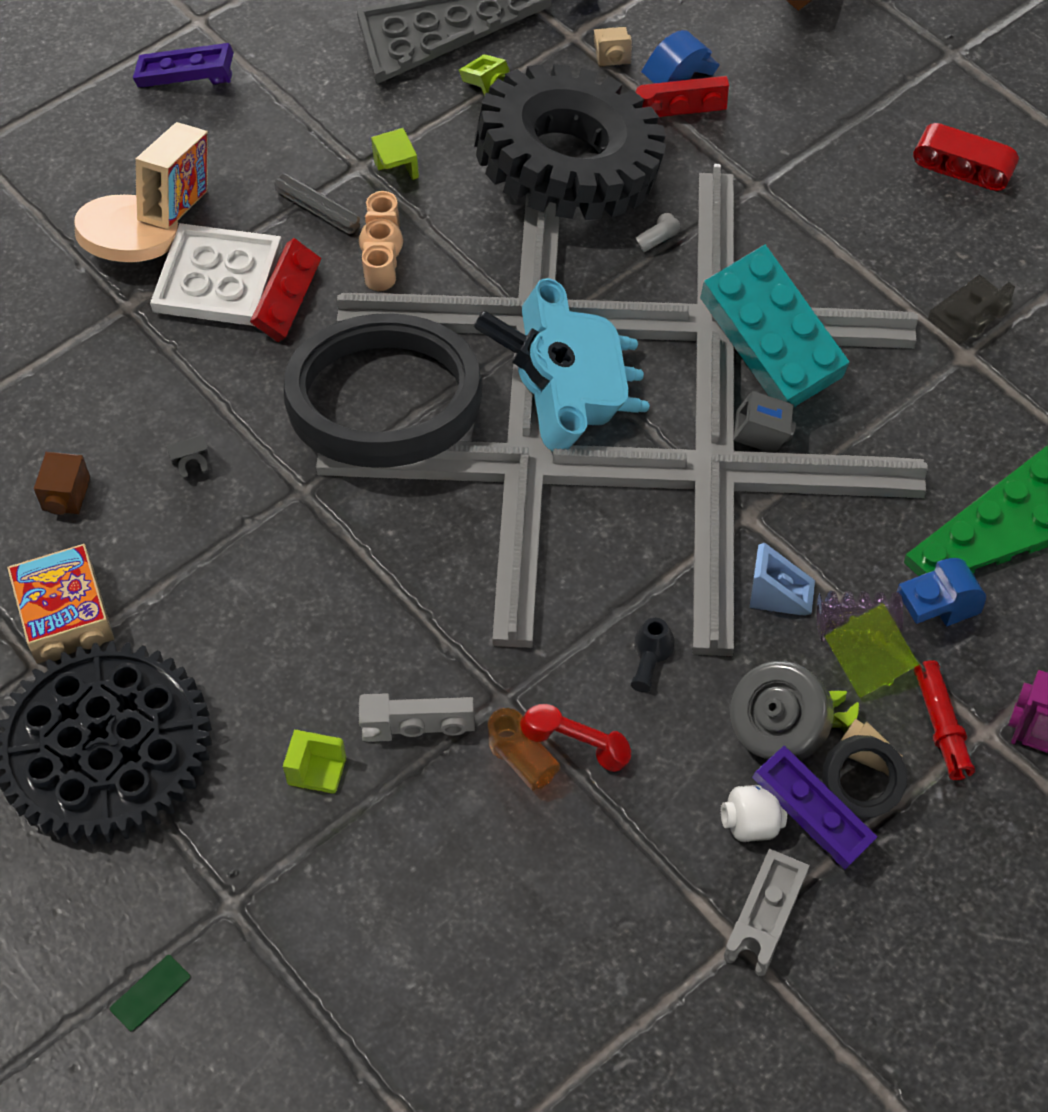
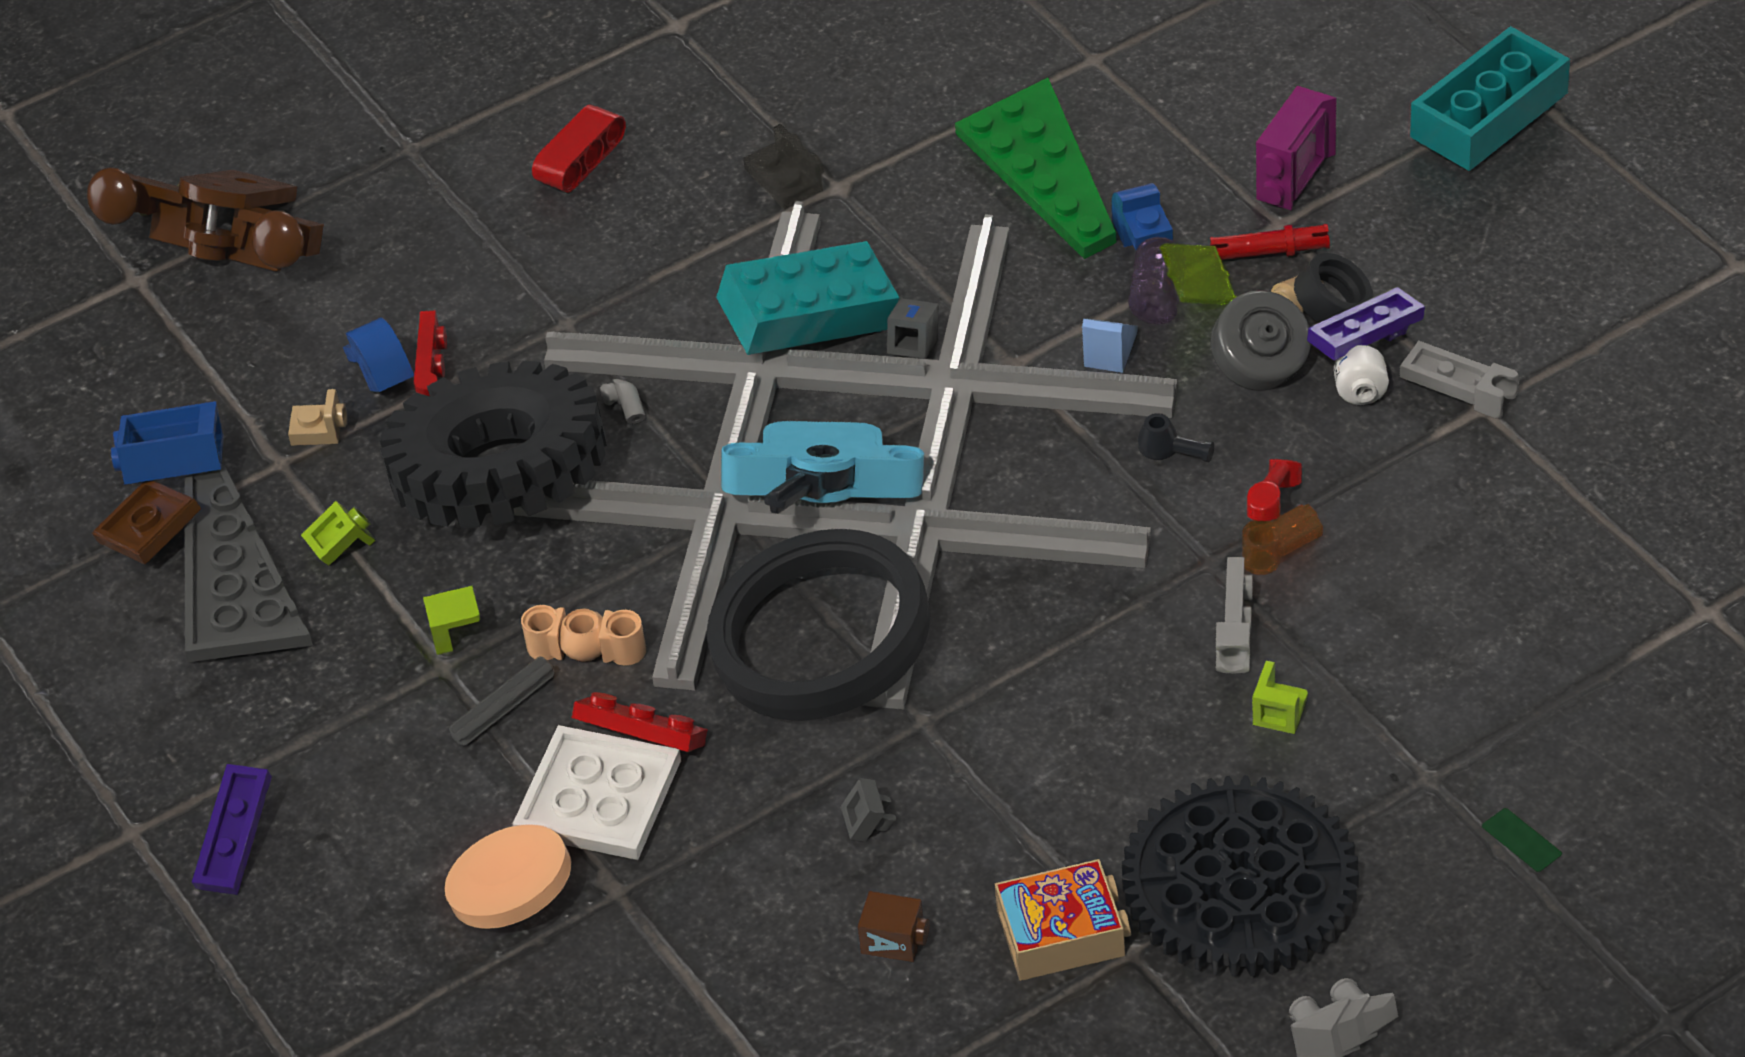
camera: 80 degrees left, 10 degrees down
(171, 175) = (455, 808): tan brick -> none

